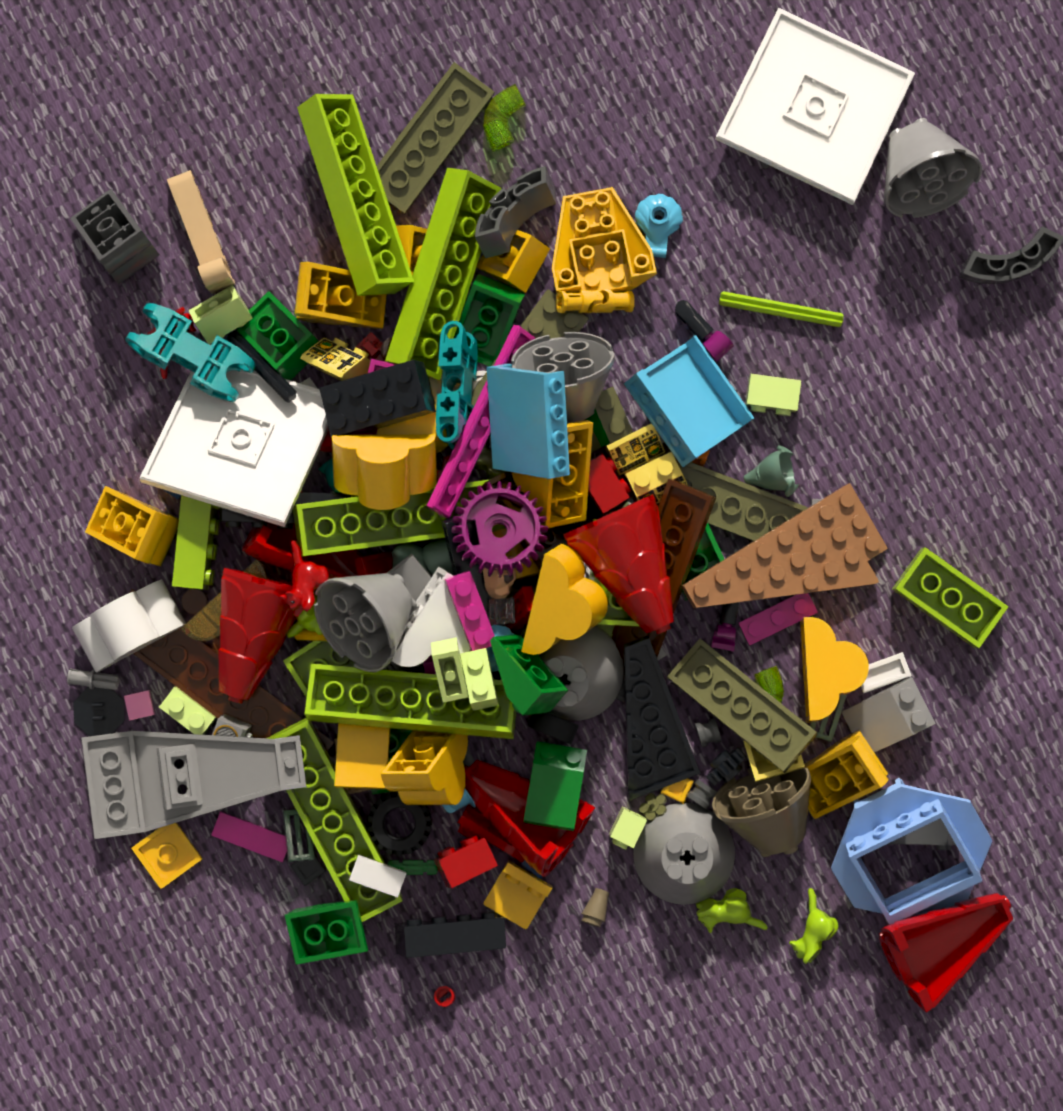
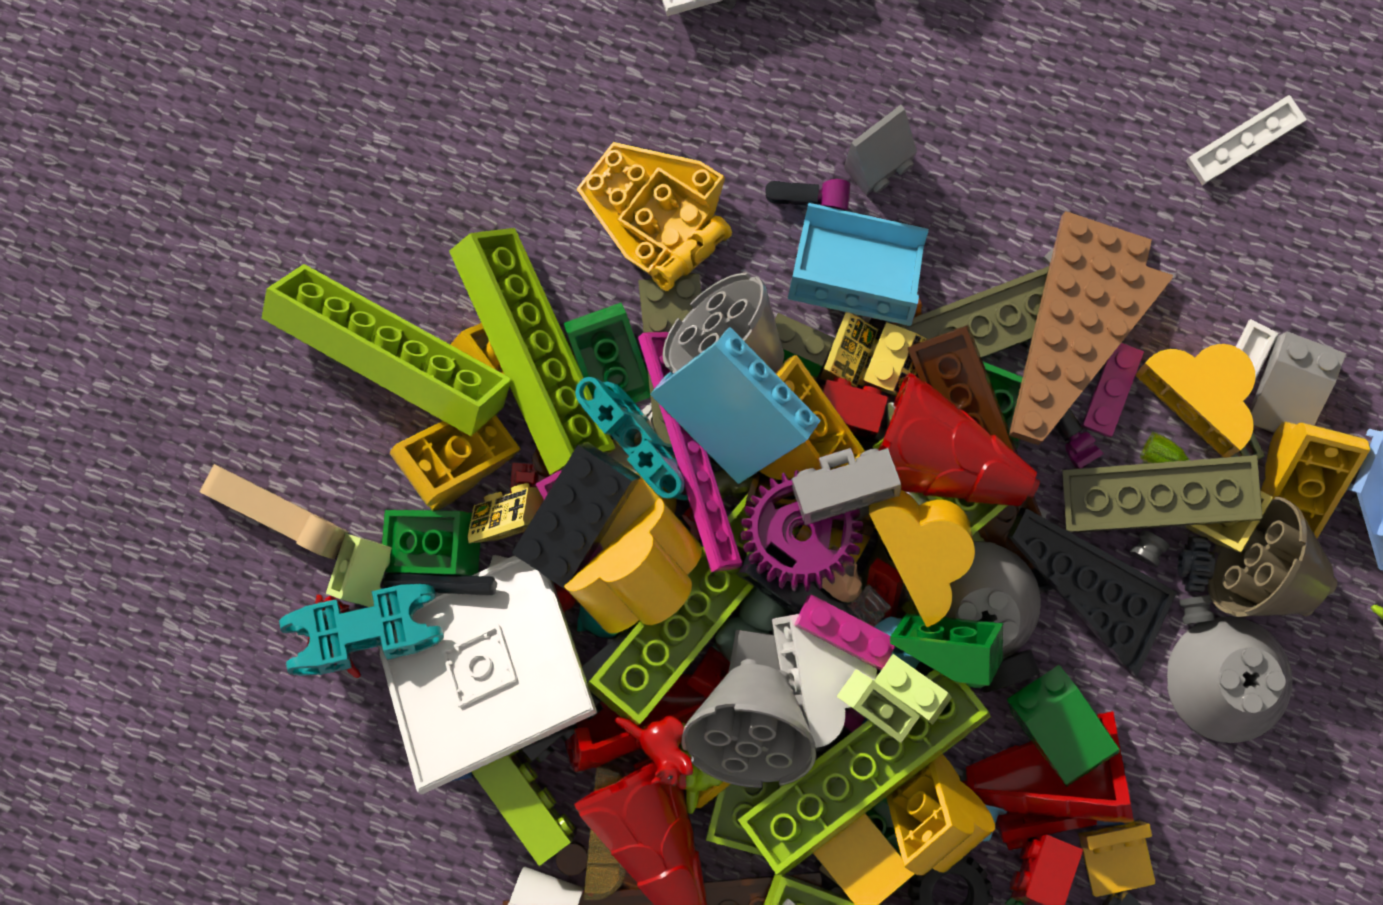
camera: 40 degrees left, 5 degrees down
(114, 237) = (197, 586): dark grey brick -> none
(132, 526) = (452, 842): yellow brick -> none
(431, 136) = (409, 238): olive plate -> none
(497, 116) = (452, 167): clear neon green cylinder -> none
(511, 209) = (541, 237): dark grey brick -> none
(520, 264) = (581, 280): yellow slope -> none
(545, 527) = (846, 488): none -> light grey piece
(596, 908) = (1200, 804): dark tan cone -> none
(627, 828) = (1163, 703): yellowish green brick -> none
(654, 806) = (1163, 661): olive plant -> none
(658, 230) = (686, 143): medium azure animal -> none
(678, 790) = (1172, 626): yellow tile -> none
(730, 909) = (1320, 693): lime animal -> none
(767, 345) = (881, 152): none -> light grey slope
(773, 393) = (924, 194): yellowish green brick -> none
(774, 472) = (990, 262): sand green hat -> none
(781, 309) = (861, 115): lime axle -> none
(950, 597) = (1249, 231): lime brick -> none
(1005, 540) = (1246, 140): none -> white plate

